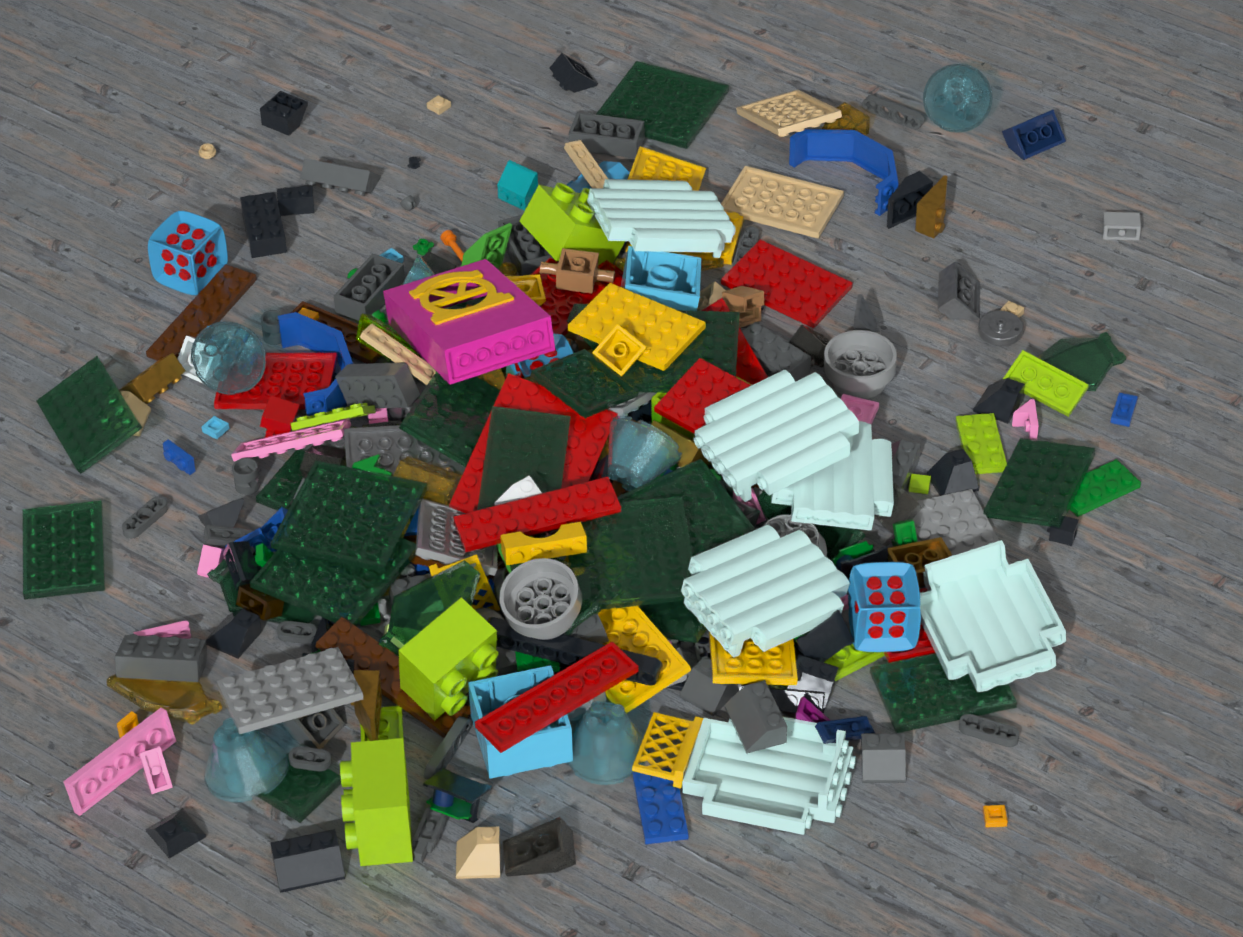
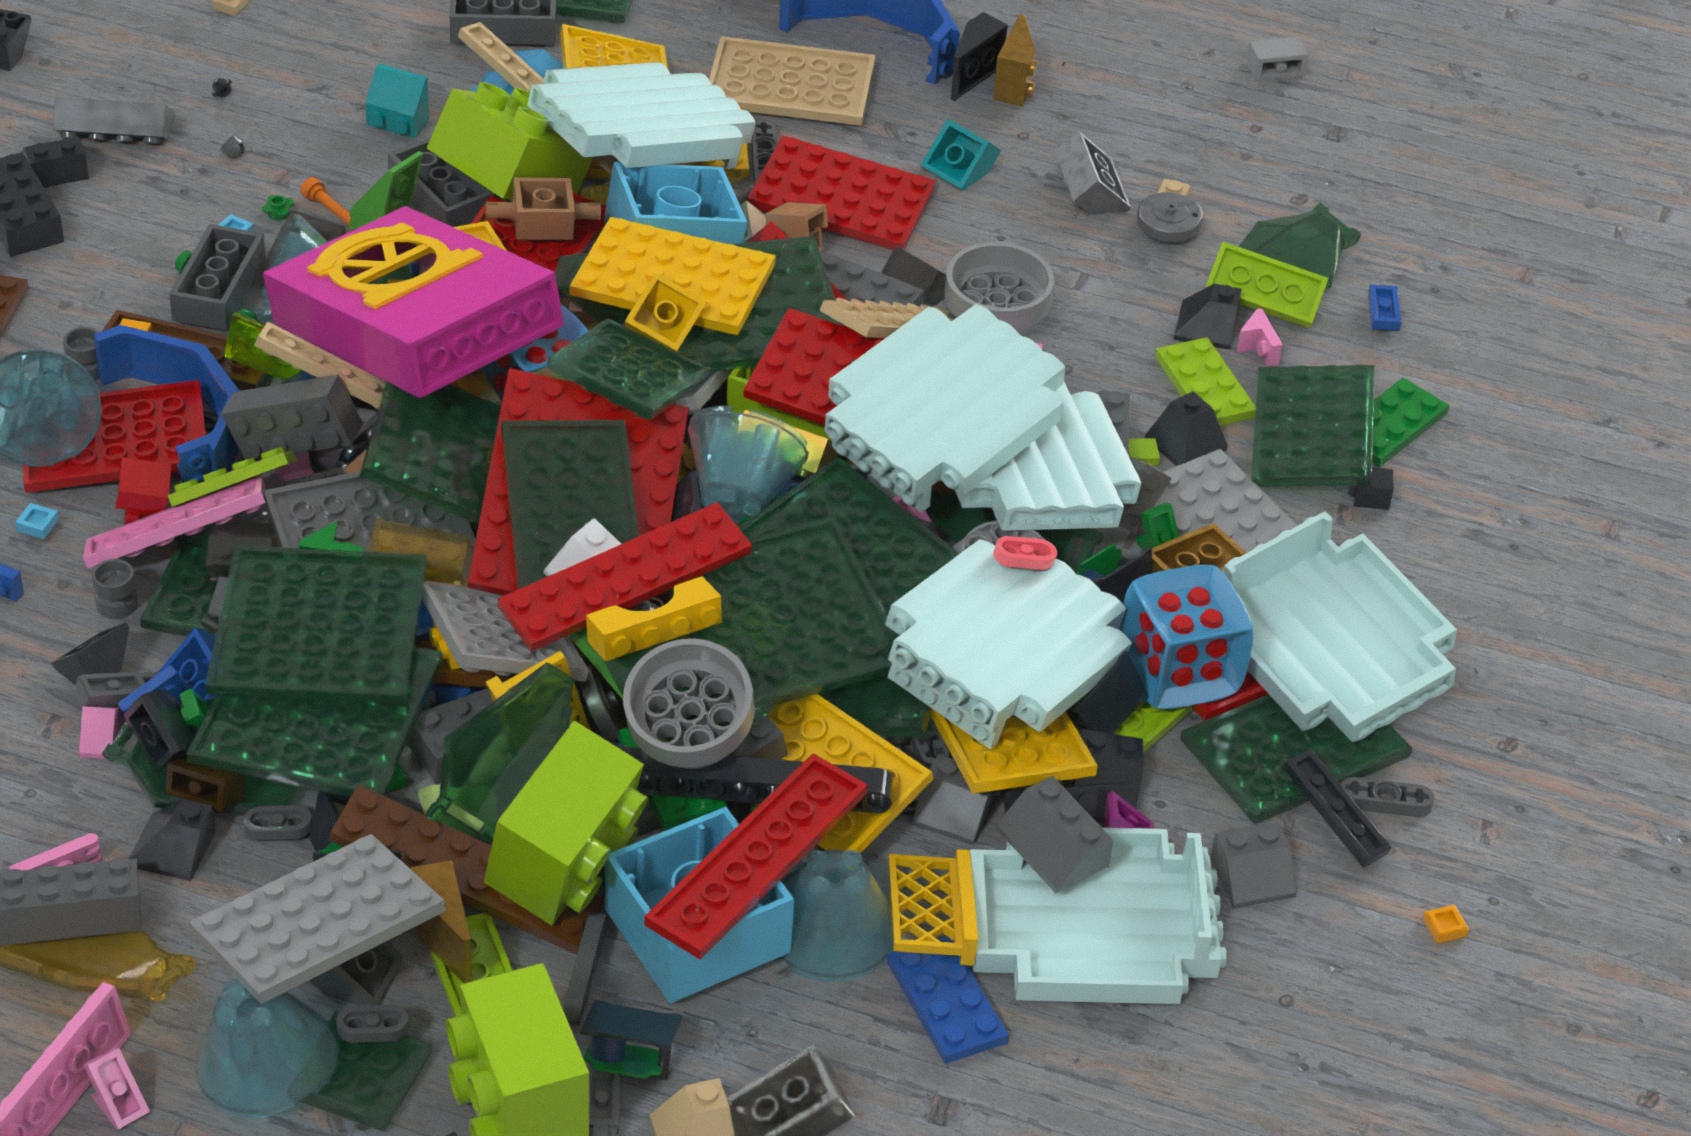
camera: 20 degrees left, 0 degrees up
(127, 723) = (44, 1022): light orange tile -> none
(753, 371) = (873, 318): none -> tan plate
(791, 537) = (1024, 553): none -> coral plate
(853, 726) = (1172, 833): dark blue tile -> none
(864, 317) = (976, 224): flat silver slope -> none
(874, 267) = (960, 155): none -> teal slope
(949, 731) = (1337, 808): none -> black plate

